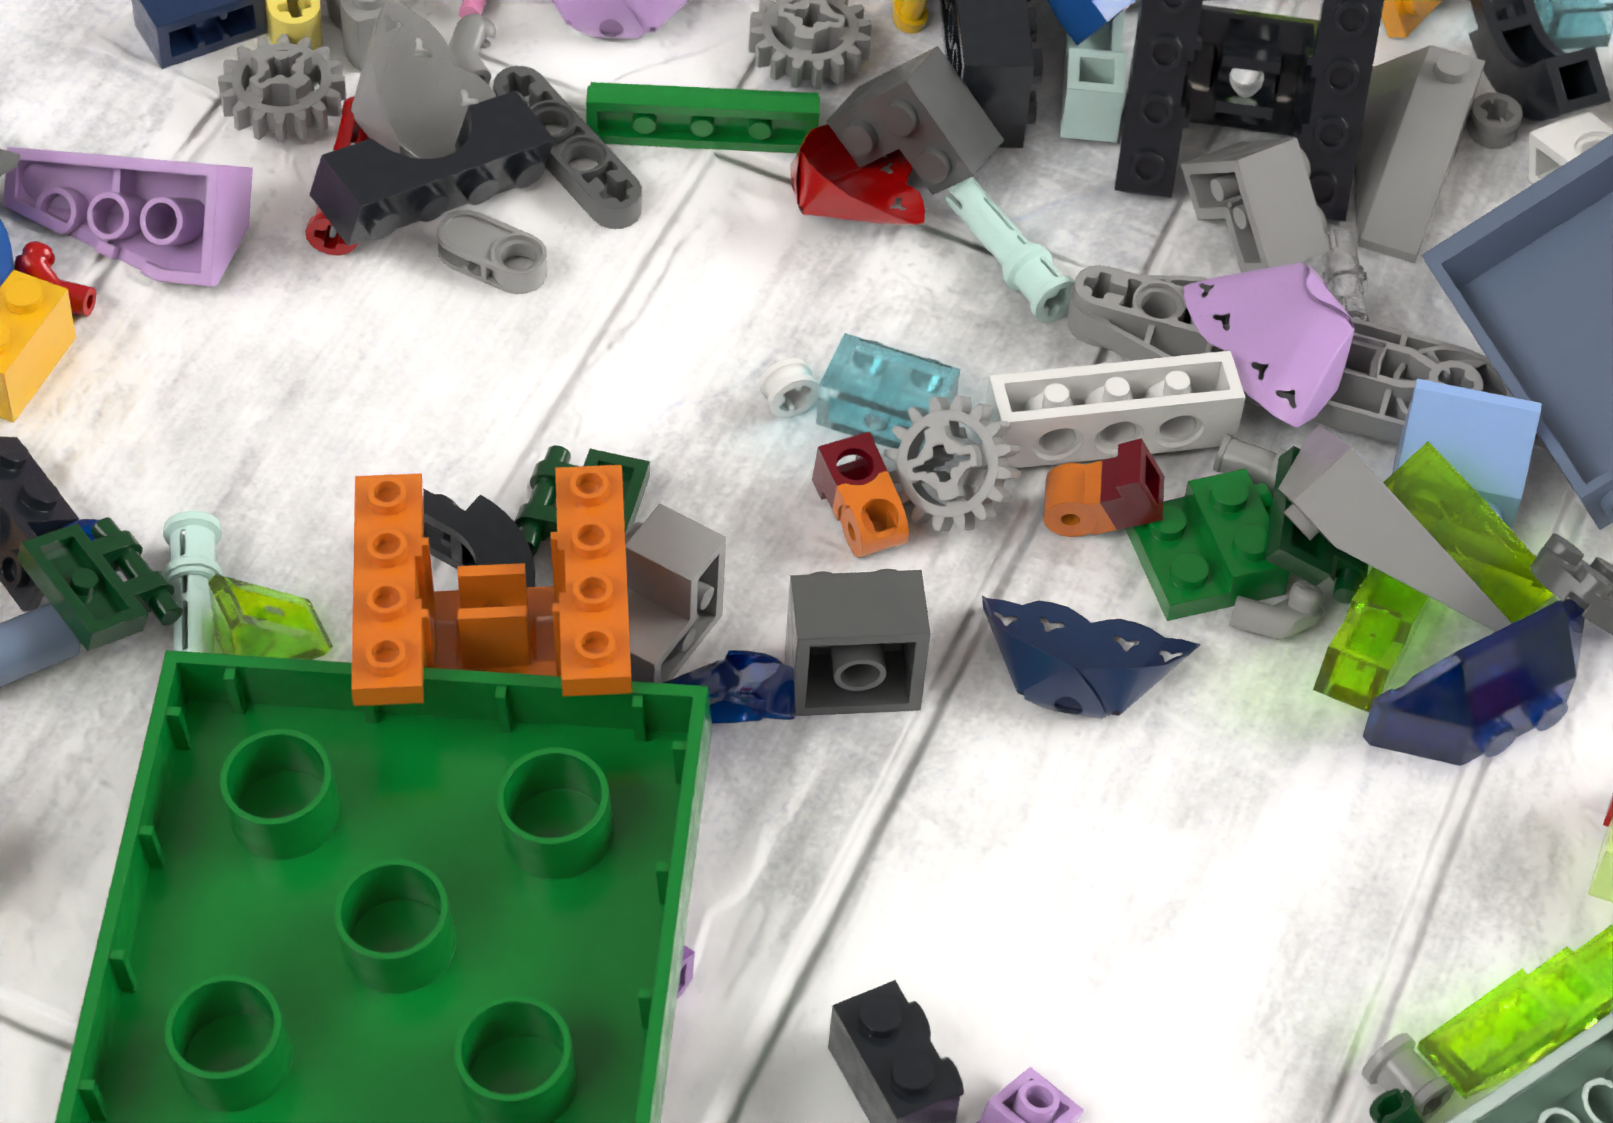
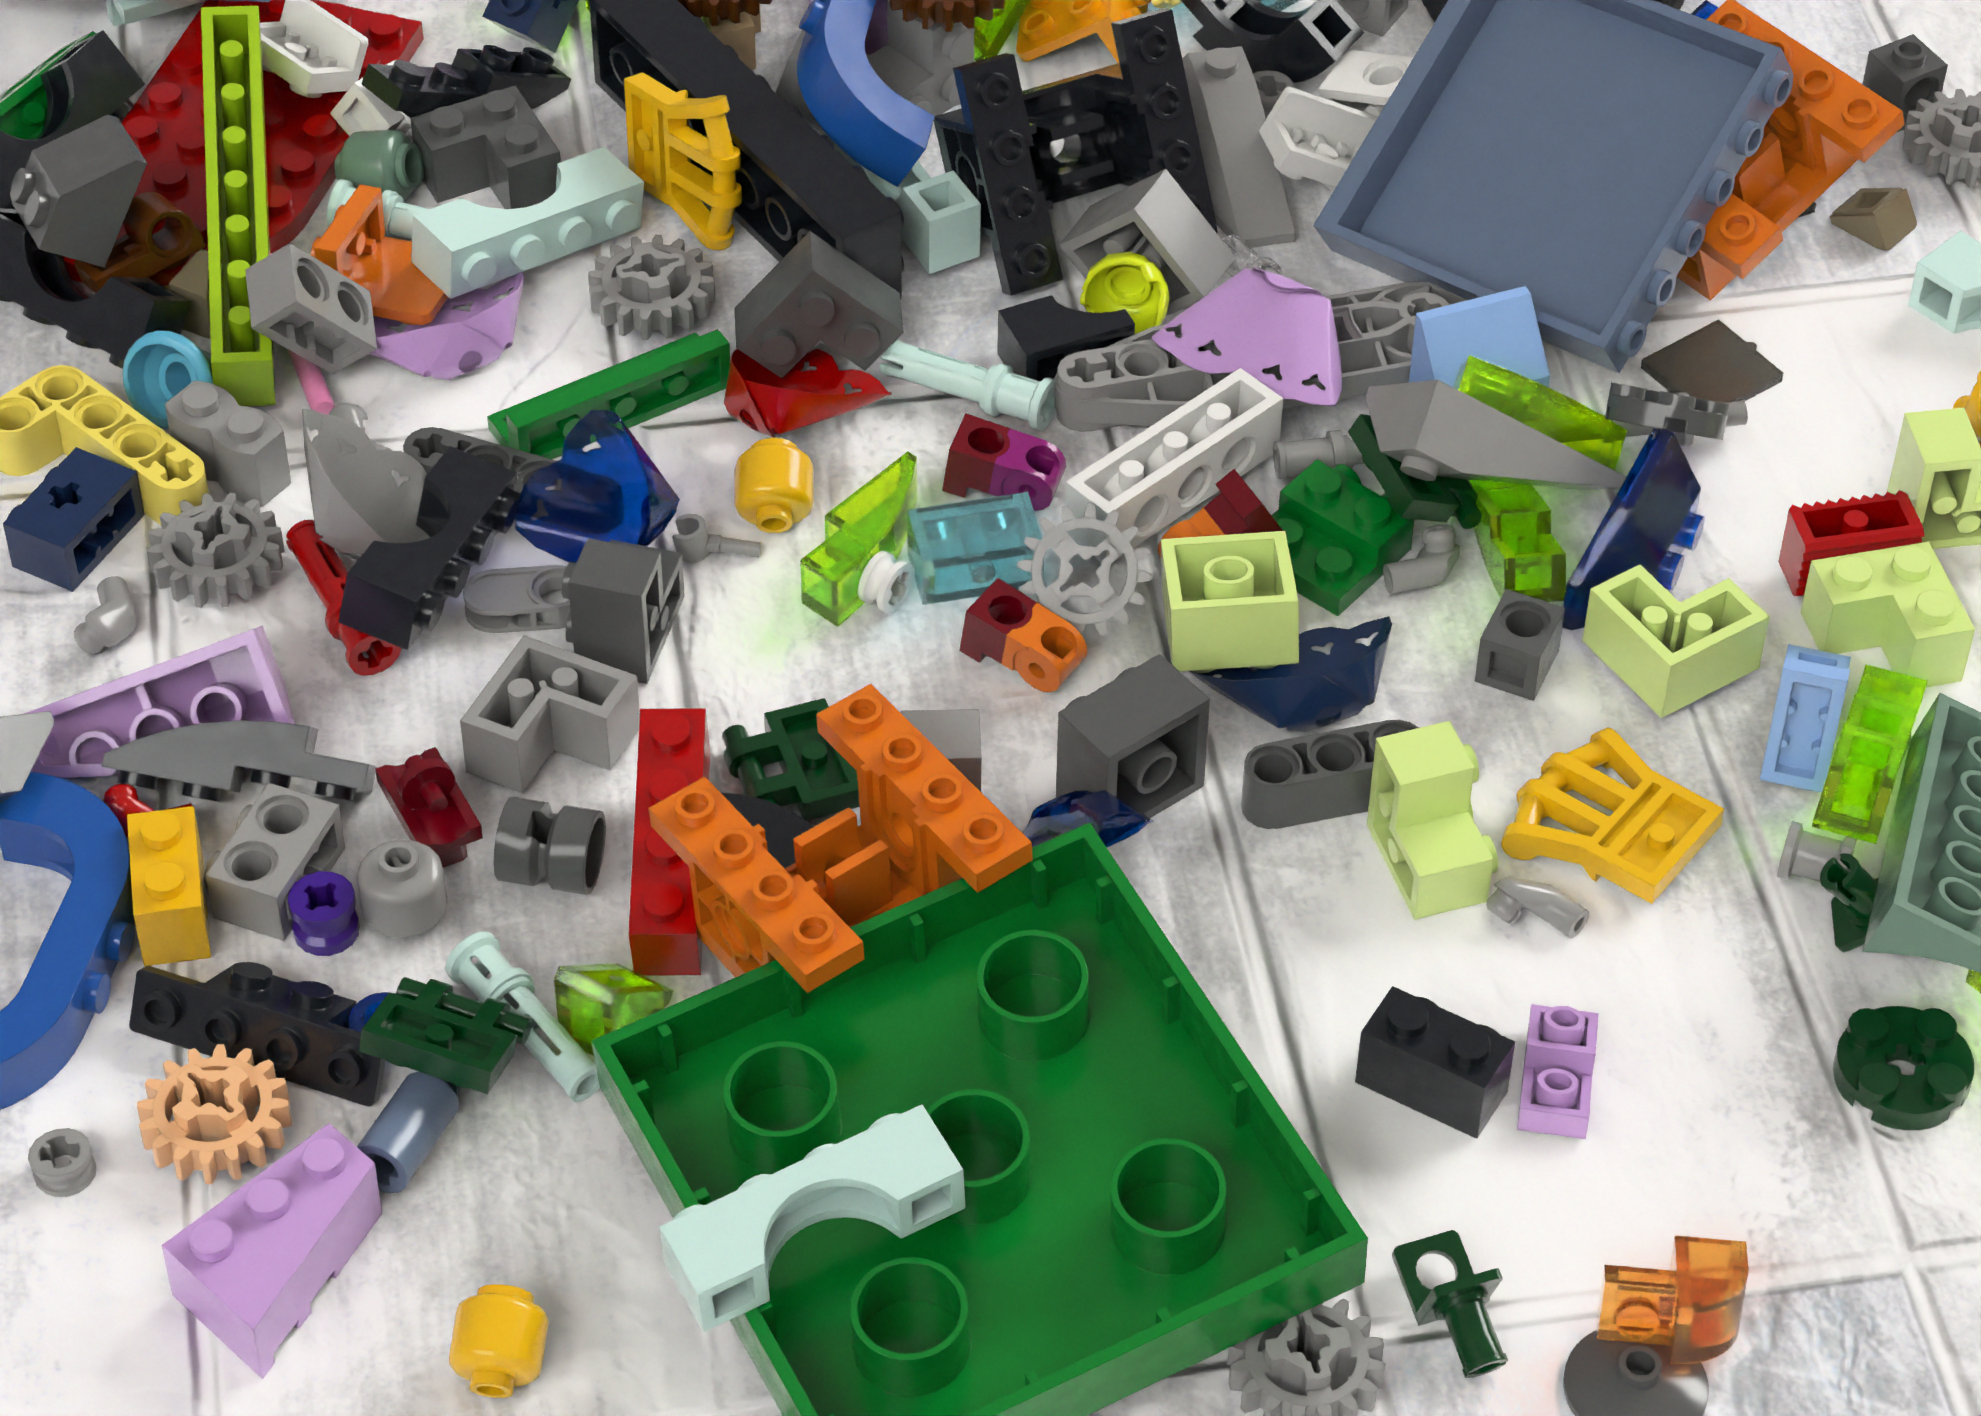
camera: 30 degrees left, 5 degrees down
(104, 445) = (323, 913): none -> dark purple wheel
(109, 890) = (888, 1175): none -> light aqua arch
(111, 368) = (271, 850): none -> light grey brick
(151, 267) = (216, 753): none -> slope
(161, 107) = (109, 622): none -> light grey arm
(180, 443) = (402, 888): none -> light grey head
(259, 388) = (431, 805): none -> dark red hips
(319, 466) = (549, 845): none -> dark grey wheel
(410, 346) = (548, 703): none -> light grey brick
(459, 458) = (662, 912): none -> red arch
(550, 295) = (623, 603): none -> dark grey brick
(604, 204) = (604, 496): none -> clear blue piece
(672, 276) = (697, 544): none -> light grey hand
(765, 256) = (773, 483): none -> yellow head
(799, 329) = (854, 532): none -> clear neon green slope
(971, 332) = (1002, 462): none -> leg
(1049, 783) = (1312, 775): none -> dark grey beam
(1055, 556) = (1230, 601): none -> yellowish green brick
(1069, 842) = (1426, 821): none -> yellowish green brick
(1106, 236) = (1043, 332): none -> black arch
(1119, 971) = (1541, 899): none -> light grey arm
(1201, 237) = (1130, 284): none -> neon yellow hair
(1257, 974) = (1643, 842): none -> yellow plate
(1285, 751) = (1519, 644): none -> dark grey brick
(1435, 816) = (1671, 647): none -> yellowish green brick
(1482, 170) = (1314, 136): none -> white bracket
(1509, 932) = (1805, 718): none -> light blue bracket

